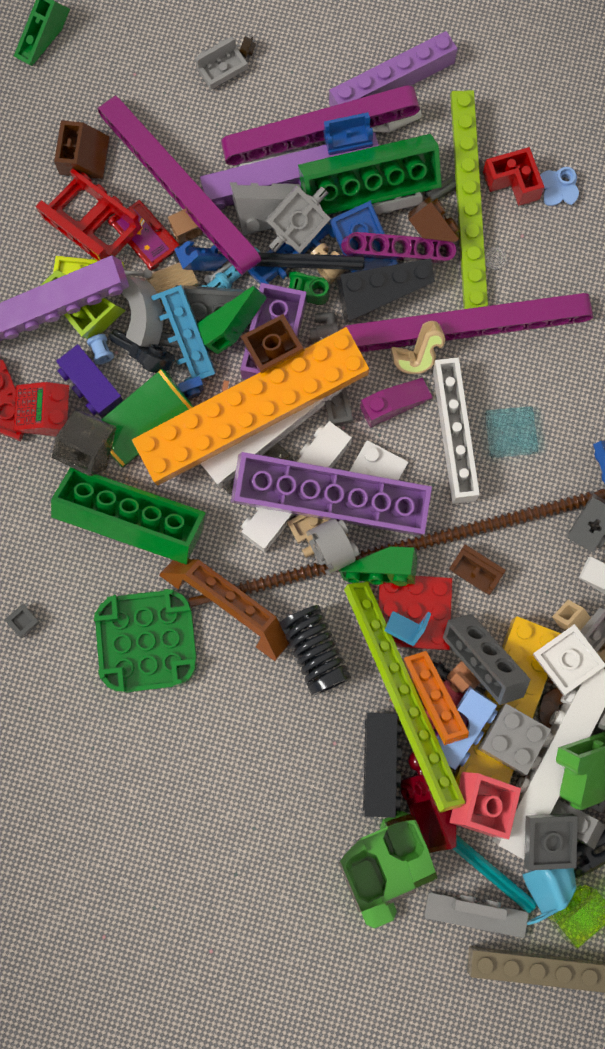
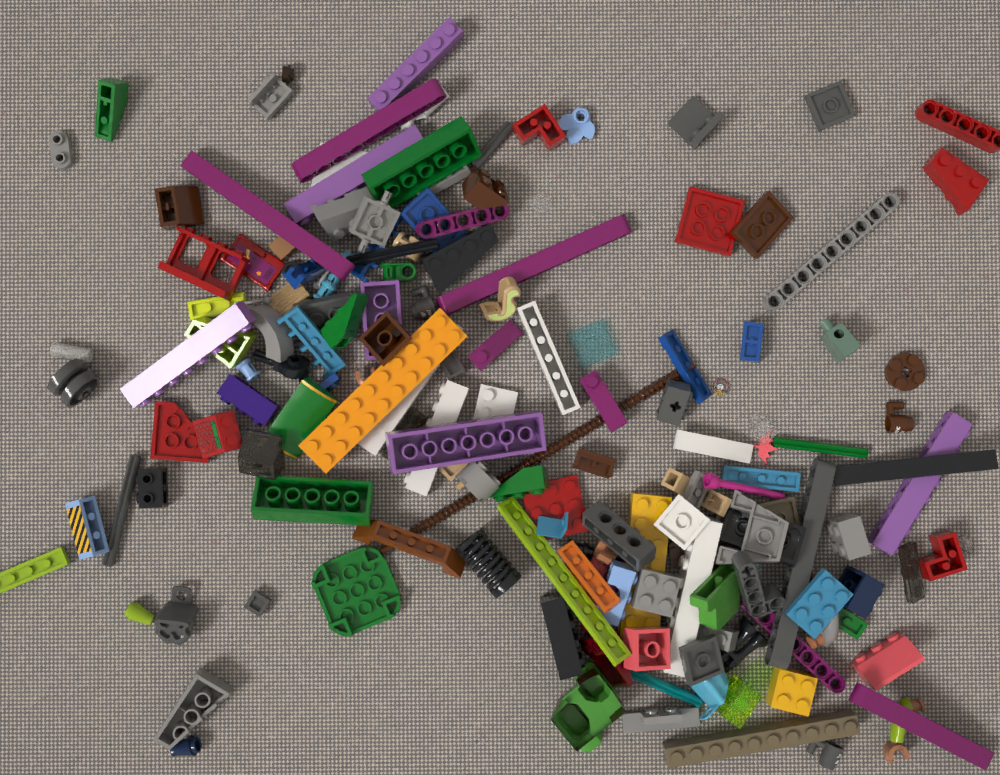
camera: 20 degrees left, 10 degrees up
(348, 133) = (394, 134): blue hinge -> none
(468, 199) = (507, 160): lime plate -> none
(507, 496) = (603, 401): none -> magenta slope

